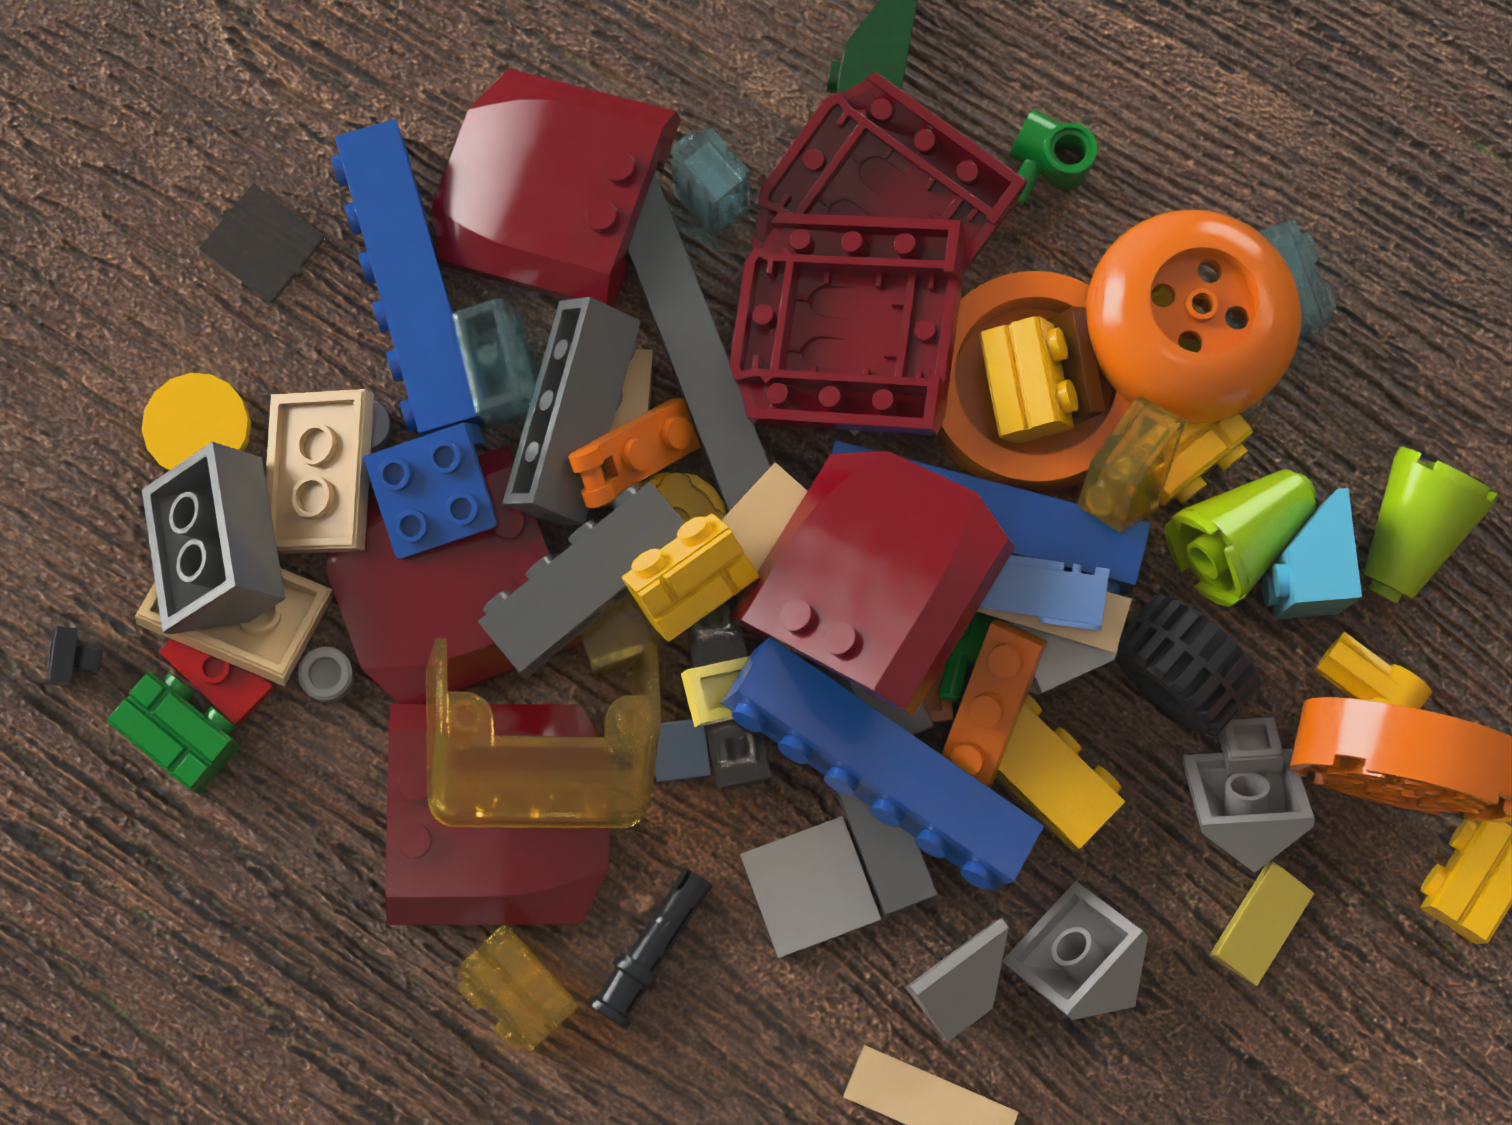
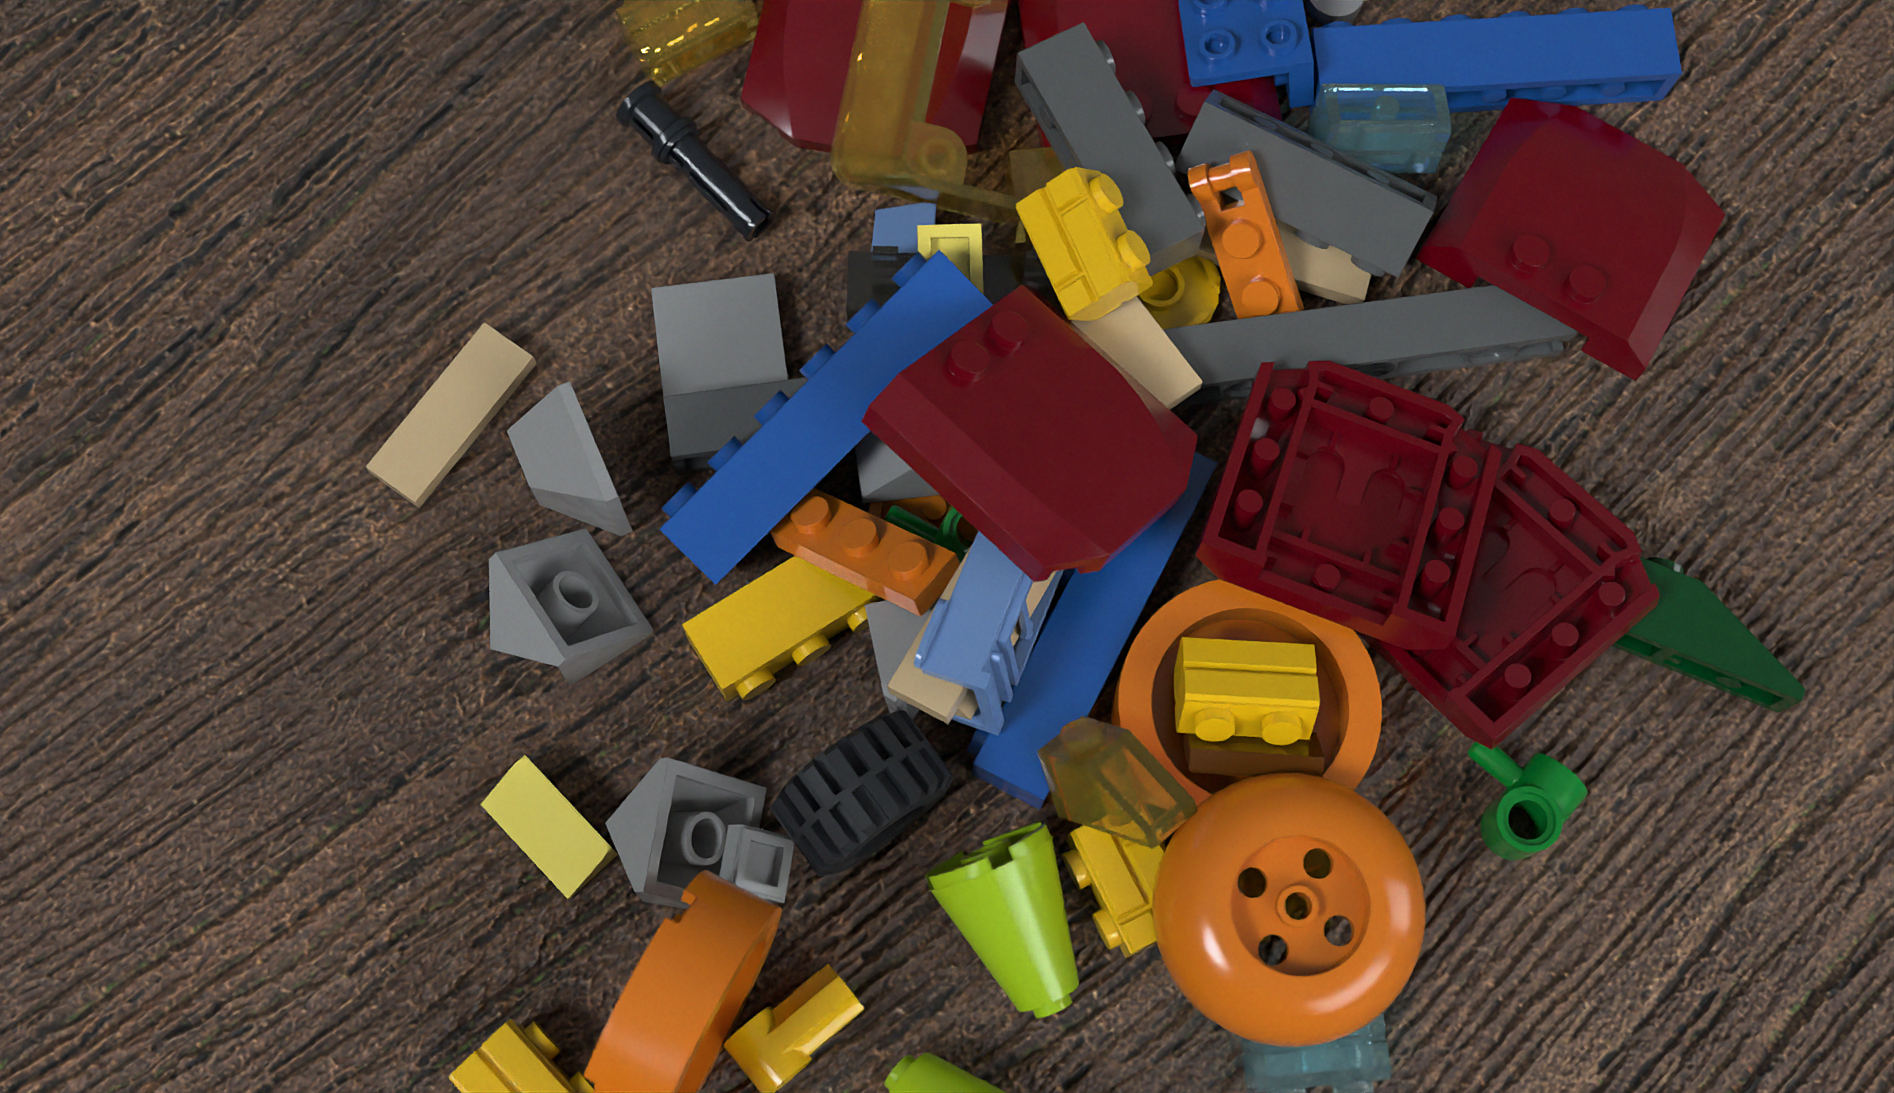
camera: 95 degrees right, 5 degrees down
(710, 180) = (1554, 389): clear light blue brick -> none
(1319, 565) = (953, 983): medium azure slope -> none

